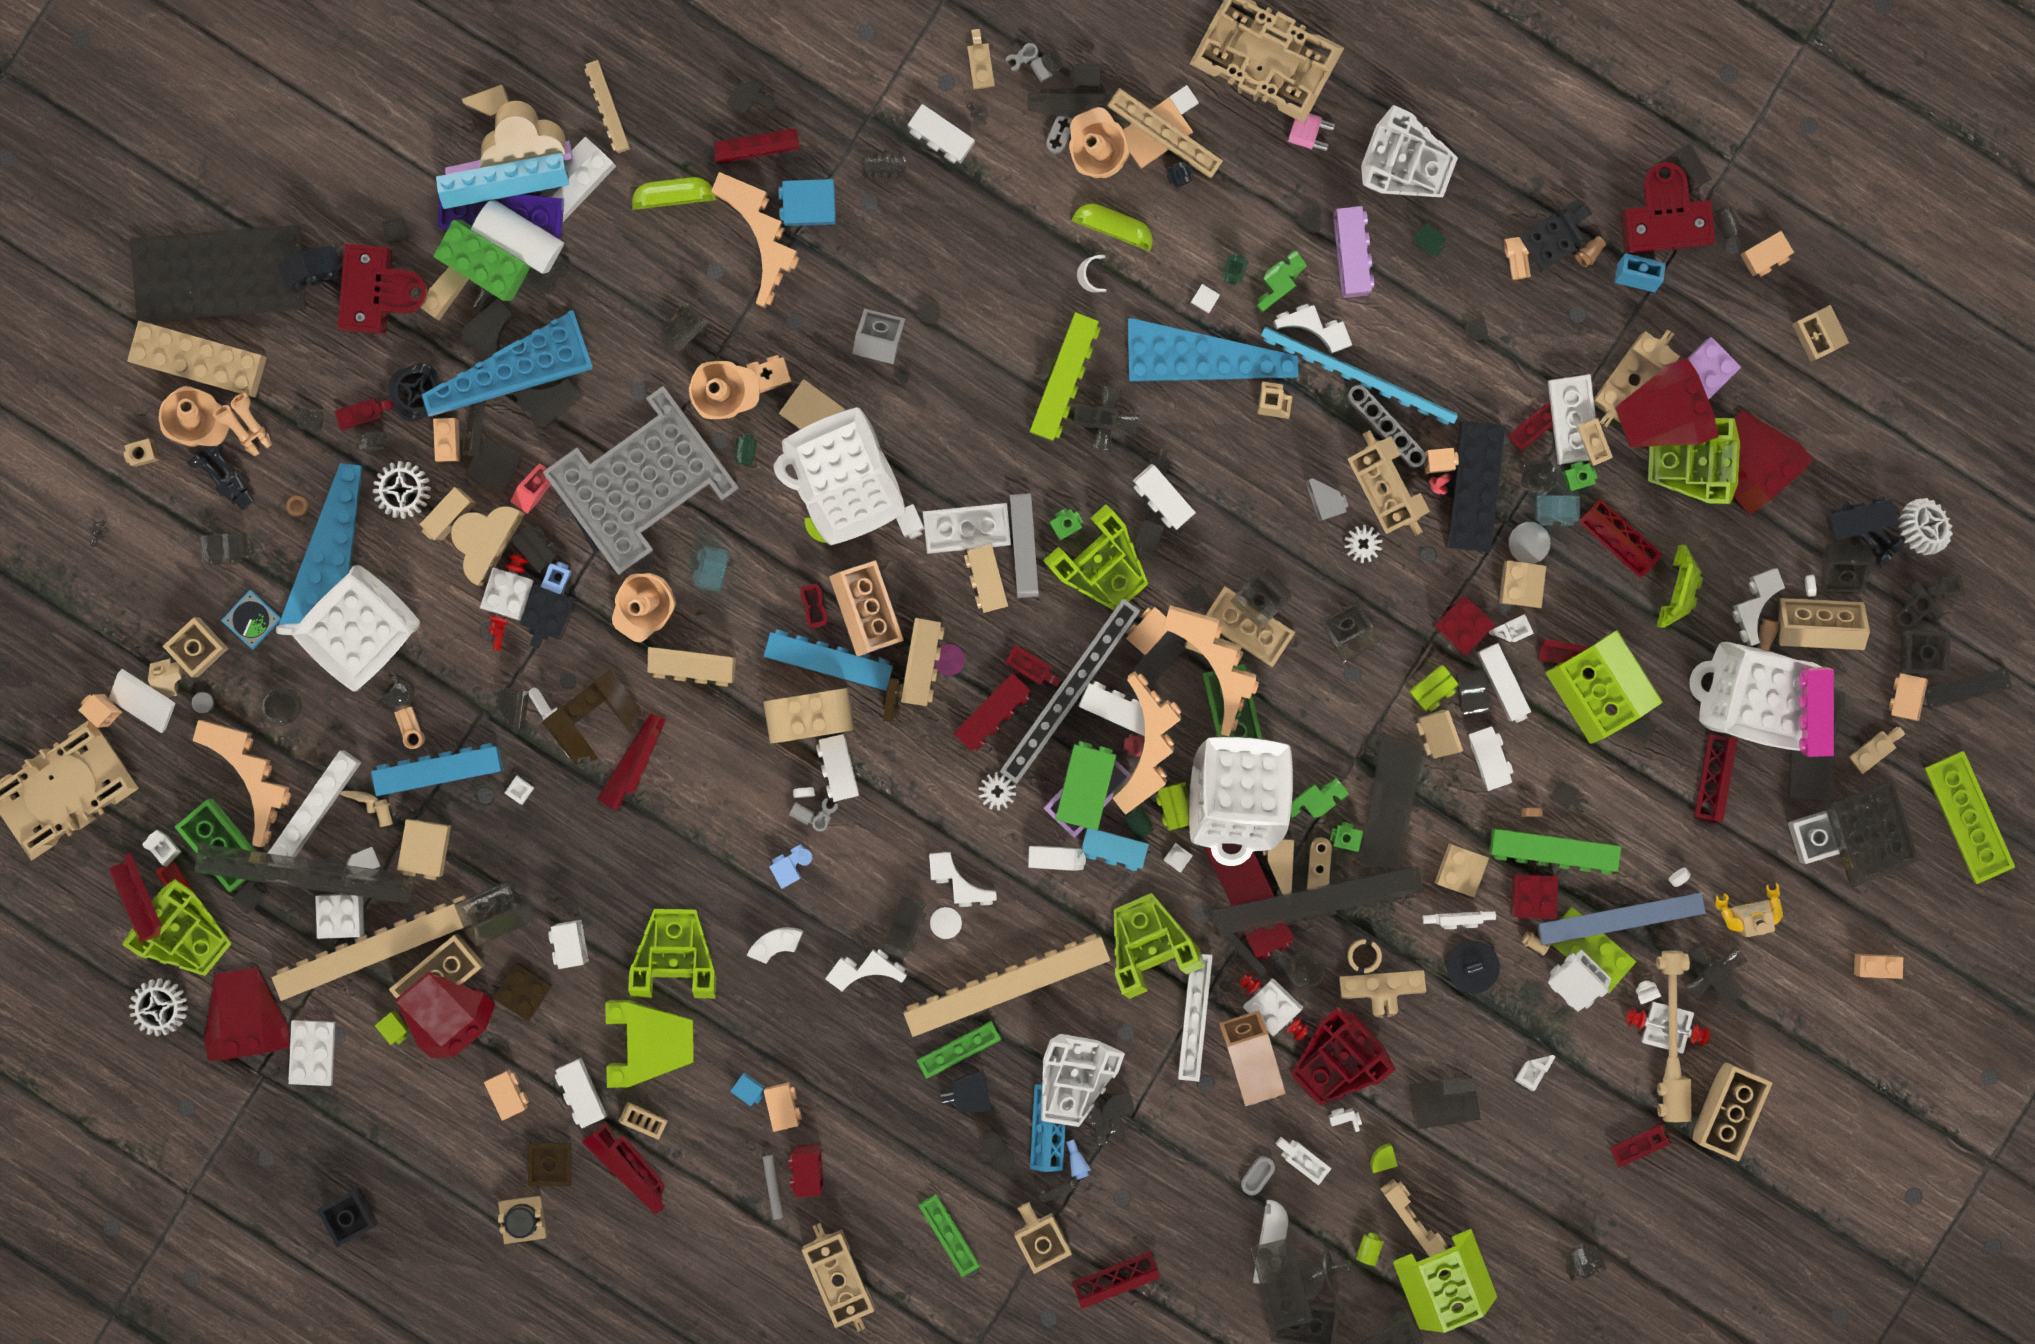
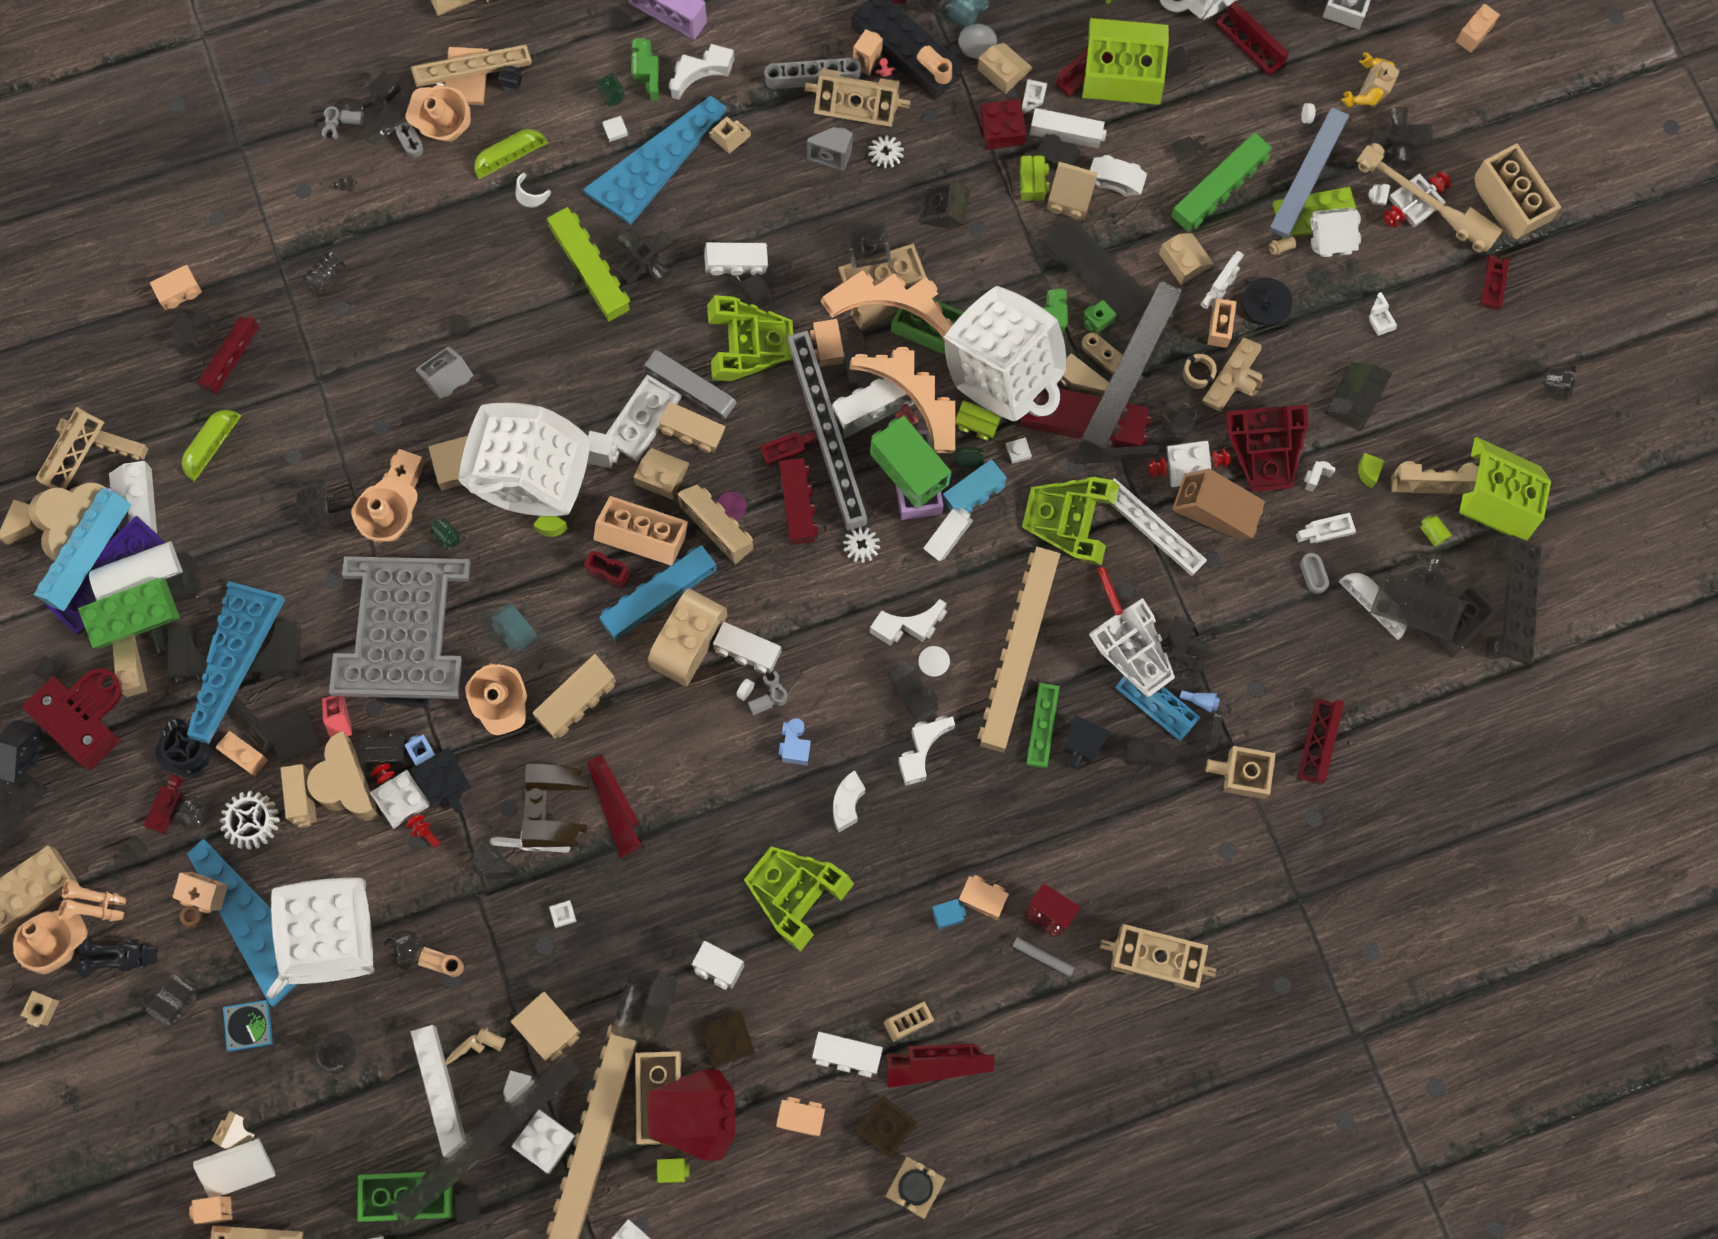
camera: 60 degrees left, 15 degrees down
(195, 647) = (229, 1087): tan brick -> none
(203, 702) = (279, 1120): light grey tile -> none
(254, 770) = (368, 1119): light nougat arch -> none
(318, 500) = (200, 892): none -> light nougat brick
(437, 770) = (492, 967): dark azure brick -> none
(573, 87) = (62, 448): none -> tan fence
(655, 1042) = (854, 960): lime wedge -> none
(775, 257) = (266, 390): light nougat arch -> none
(778, 55) = (176, 287): none -> light nougat brick
(808, 202) = (302, 347): dark azure brick -> none
(891, 708) = (726, 557): dark brown plate -> none
(932, 582) = (660, 473): none -> tan slope
(940, 134) = (335, 218): white brick -> none
(949, 1235) = (1188, 845): bright green tile -> none
(980, 62) = (308, 154): tan plate -> none
(1066, 523) = (698, 343): bright green brick -> none
(1111, 1022) = (1110, 592): none -> red piece
(1184, 100) = (460, 38): white tile -> none
(1367, 380) = (753, 67): medium azure plate -> none
(1420, 944) = (1221, 323): none -> light nougat brick
(1467, 529) = (935, 64): none -> light nougat piece
(1531, 812) = (1180, 178): medium nougat tile -> none
(1534, 896) = (1245, 219): dark red brick -> none

